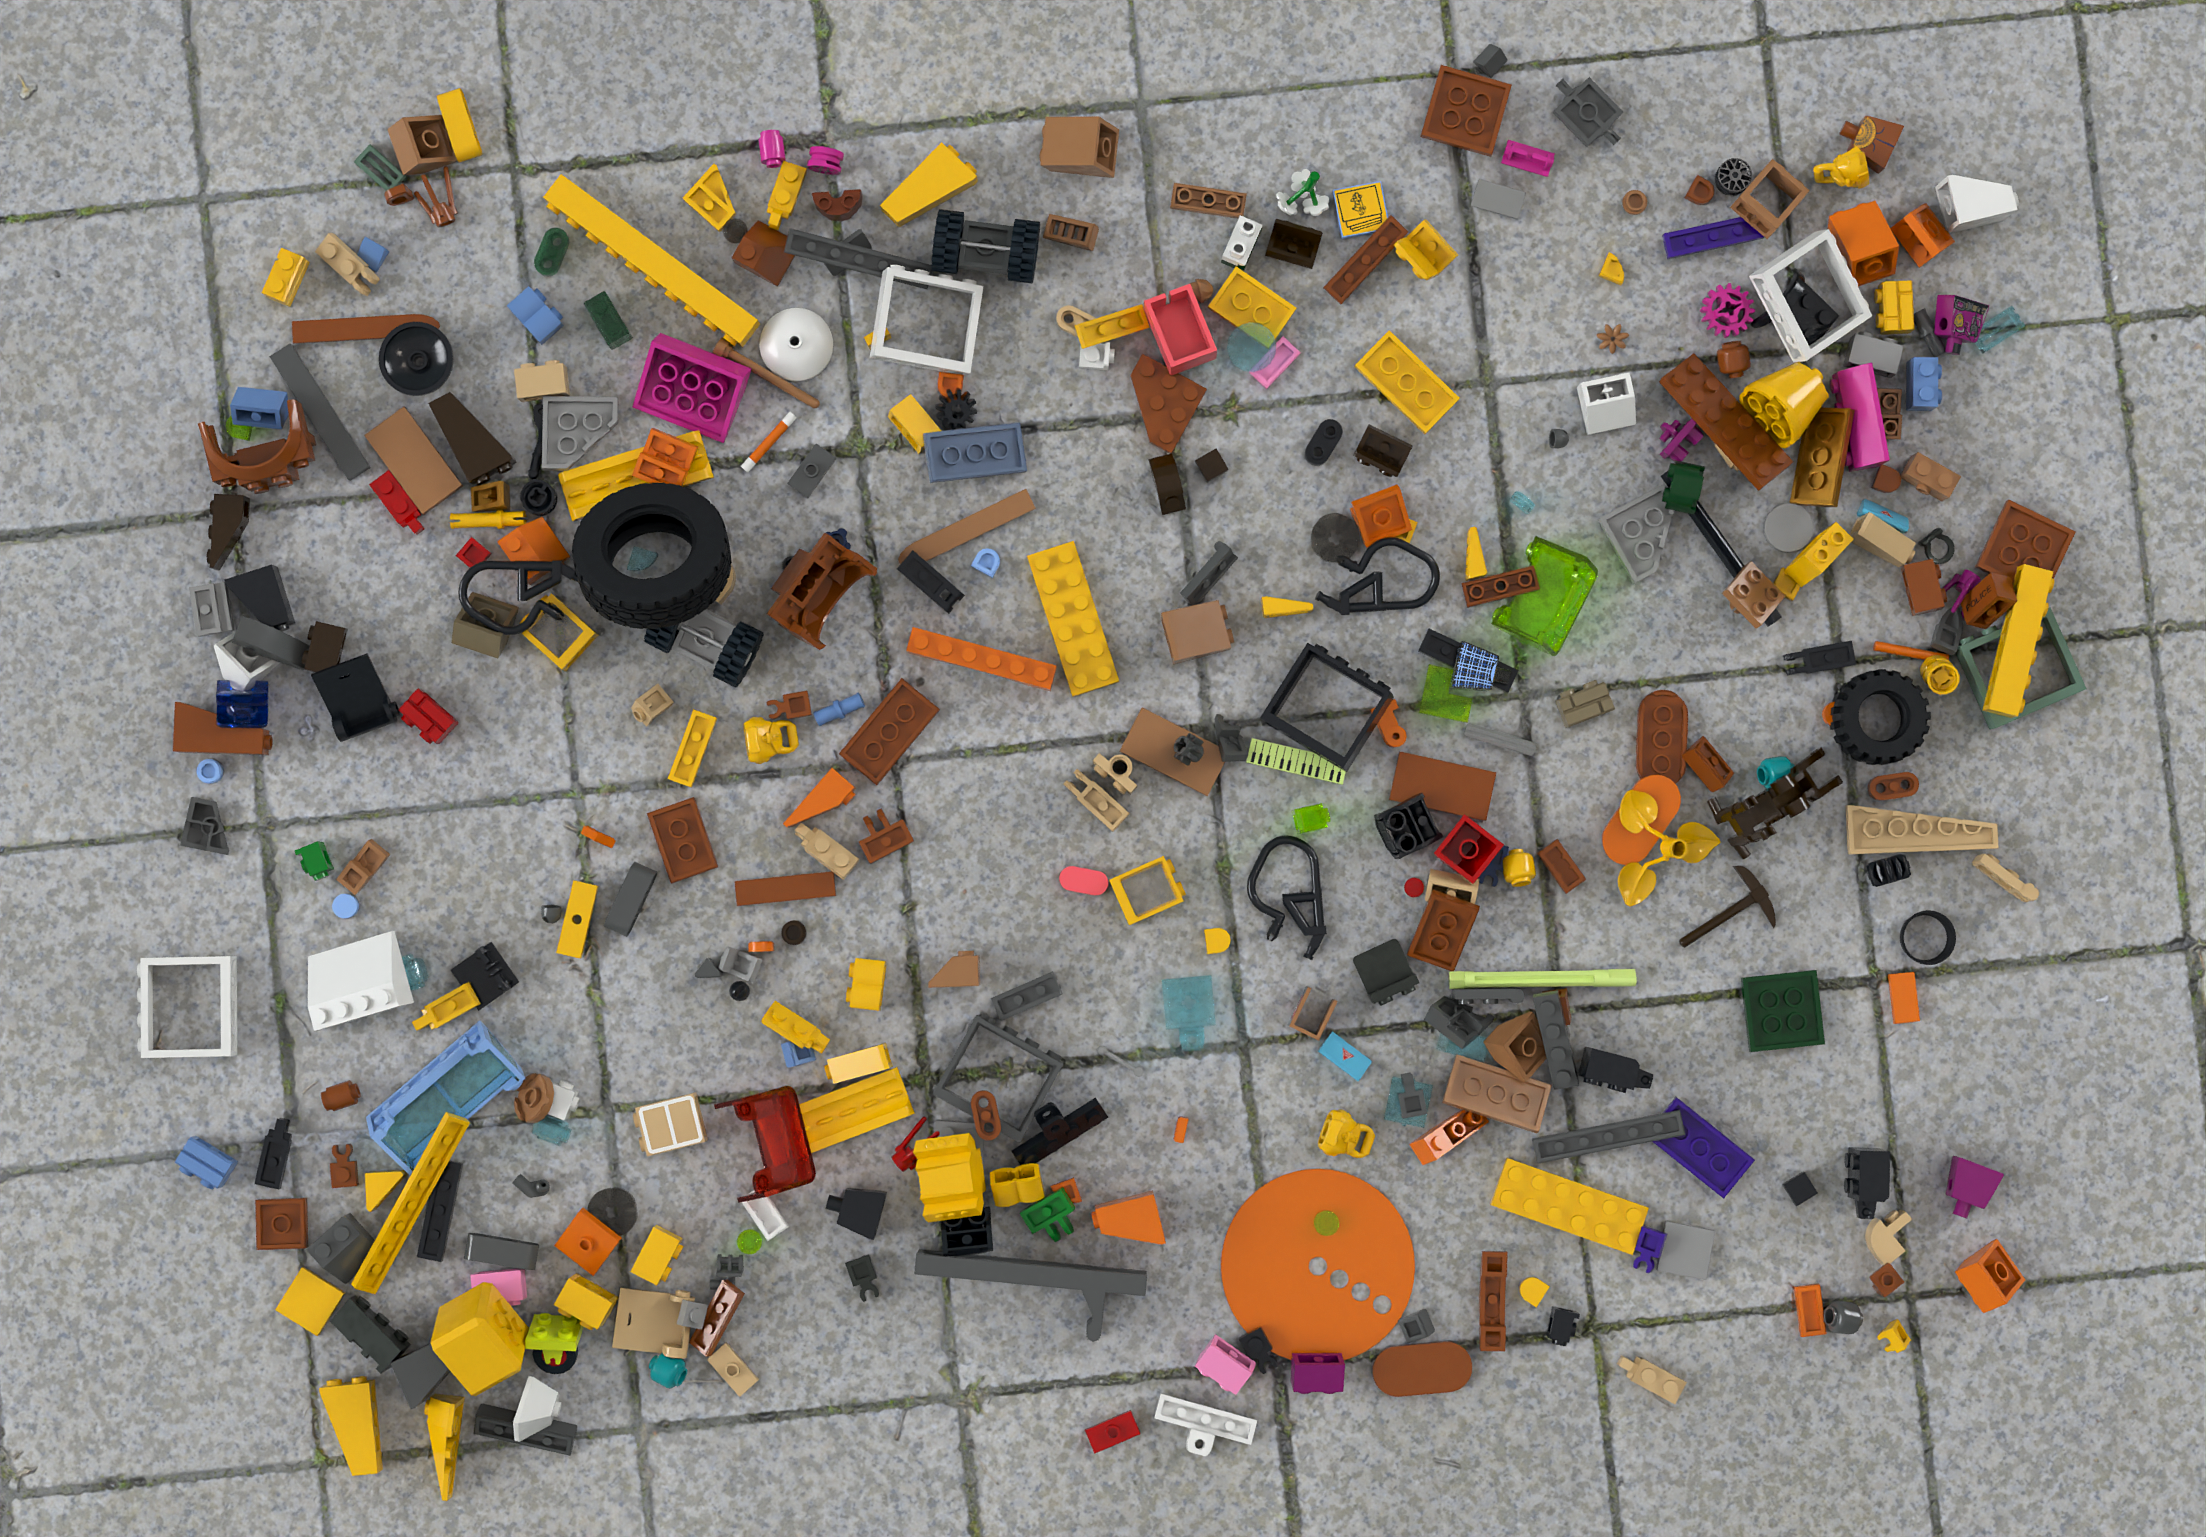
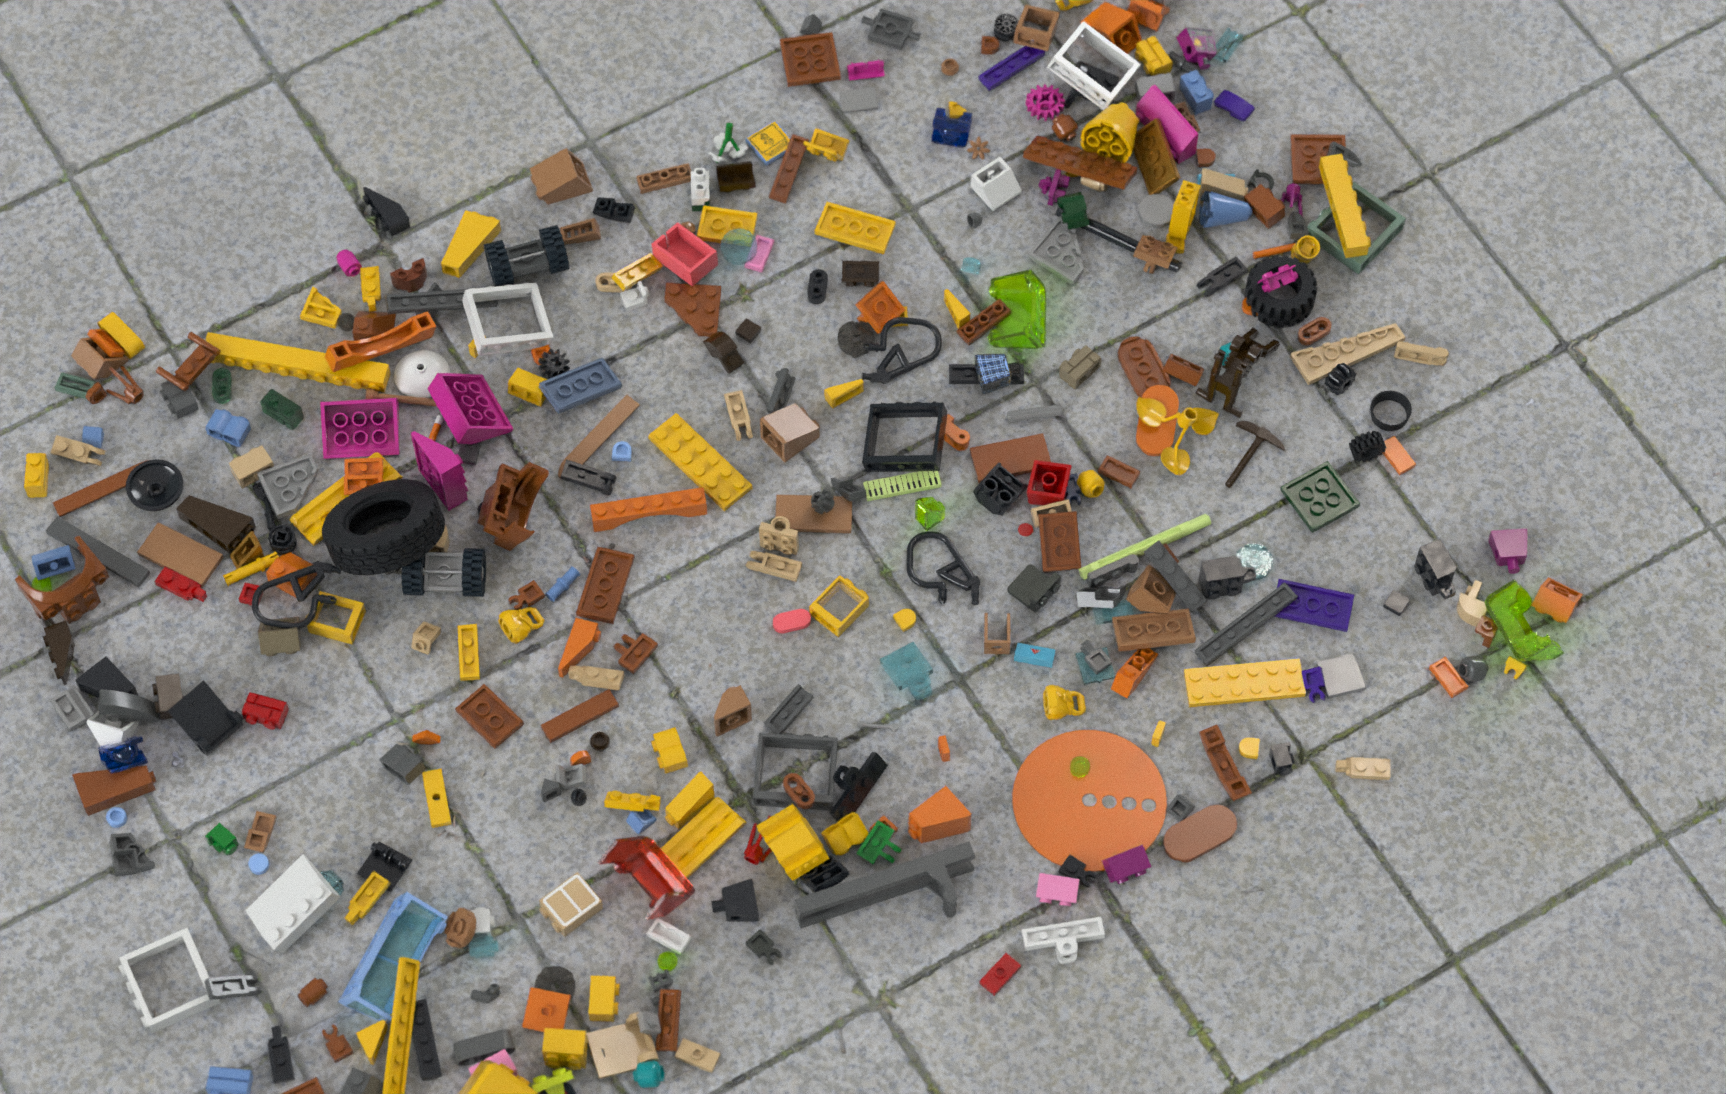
camera: 25 degrees left, 25 degrees down
(249, 1052) = (231, 987): none -> hinge
(434, 131) = (106, 343): none -> orange tile
(494, 244) = (180, 401): none -> dark grey brick
(525, 215) = (193, 365): none -> dark orange plate
(551, 913) = (415, 803): dark grey hinge -> none
(555, 860) = (402, 763): none -> dark grey brick
(630, 899) = (469, 768): dark grey beam -> none
(754, 518) = (441, 470): none -> dark pink slope
(758, 288) = (353, 352): none -> orange arch
(825, 160) = (389, 253): dark pink wheel -> none
(829, 424) = (469, 407): none -> dark pink slope
(851, 101) = (390, 213): none -> black slope
(1125, 218) = (614, 211): none -> black slope
(1147, 575) = (738, 413): none -> tan hinge
(1436, 1226) = (1158, 733): none -> yellow tile
(1437, 700) = (981, 407): clear neon green plate -> none
(1588, 298) = (951, 131): none -> clear blue piece
(1661, 1055) = (1258, 557): none -> clear light blue tile
(1867, 570) = (1222, 210): none -> medium blue cone
(1872, 976) = (1367, 446): none -> black tyre
(1893, 711) = (1271, 281): none -> dark pink hinge
(1920, 1301) = (1507, 610): none -> clear neon green windscreen
(1930, 477) = (1232, 142): medium nougat brick -> none
(1960, 424) = (1234, 105): none -> dark purple slope
(1988, 600) = (1311, 192): dark orange brick -> none
(2054, 560) = (1348, 155): none -> dark grey plate

